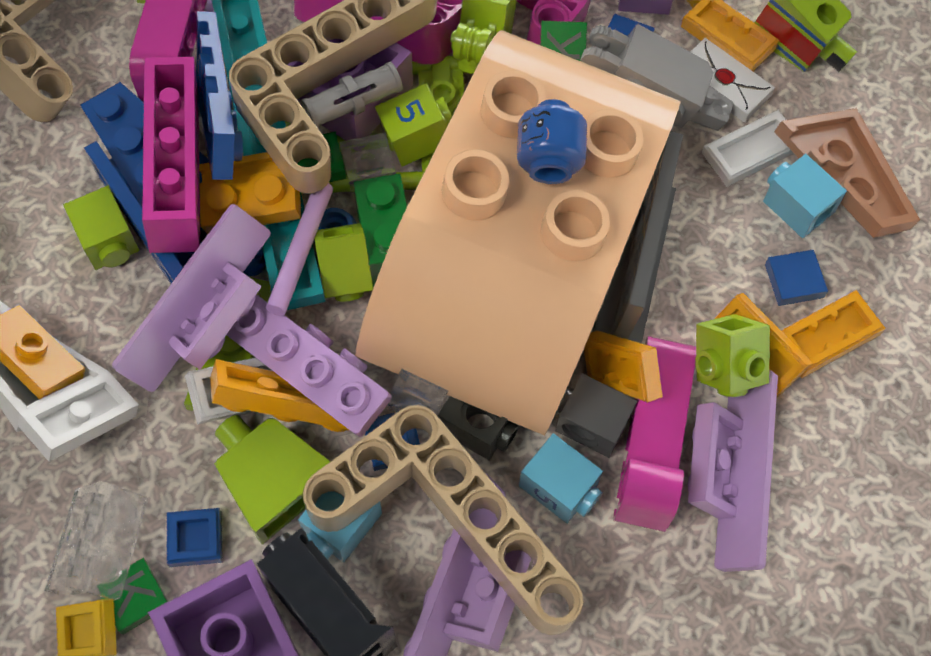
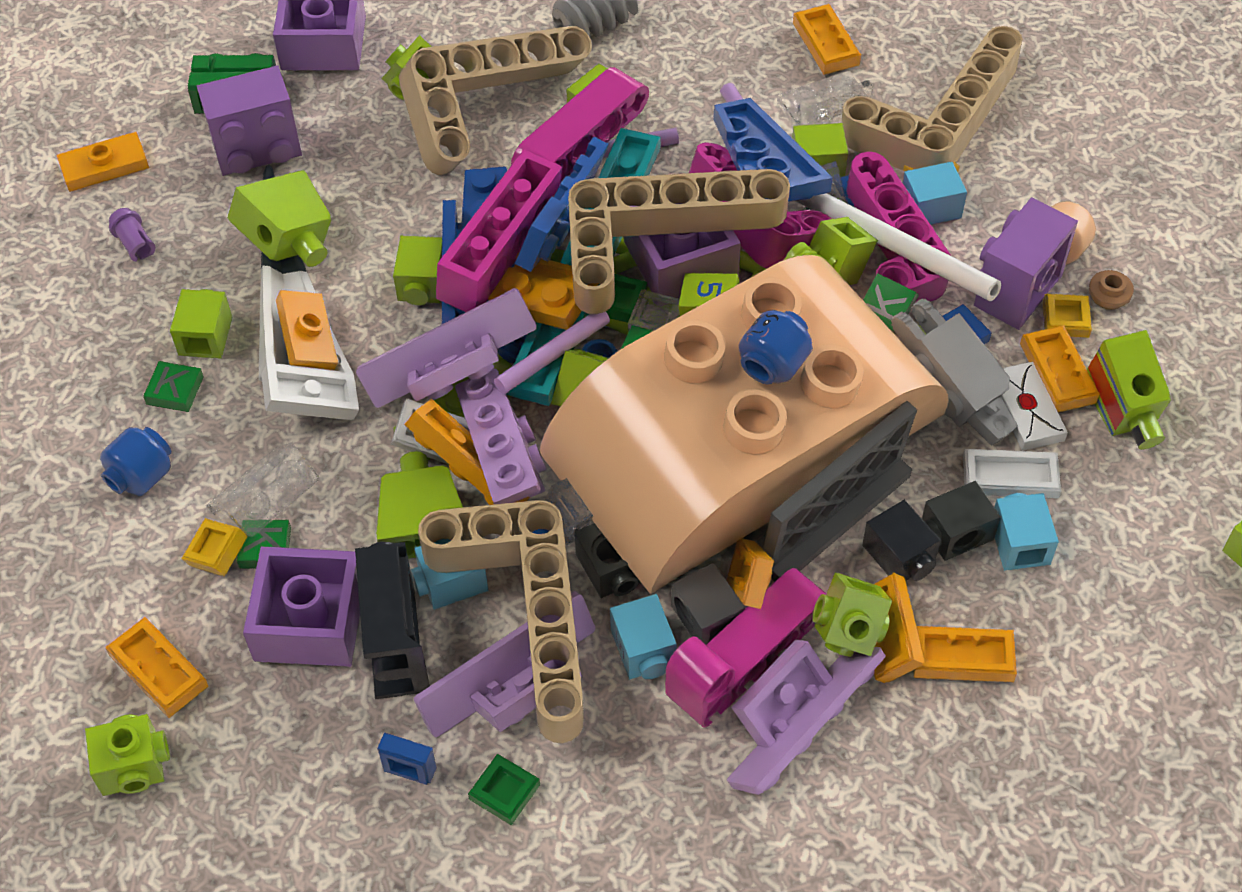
camera: 35 degrees right, 10 degrees down
(194, 537) = (335, 527): blue tile -> none
(382, 82) = (632, 251): light grey pin -> none
(717, 262) = (902, 542): none -> black brick
(747, 215) = (961, 519): none -> pearl dark grey brick
(796, 277) = (970, 596): blue tile -> none
(851, 156) = (1091, 531): nougat wing -> none

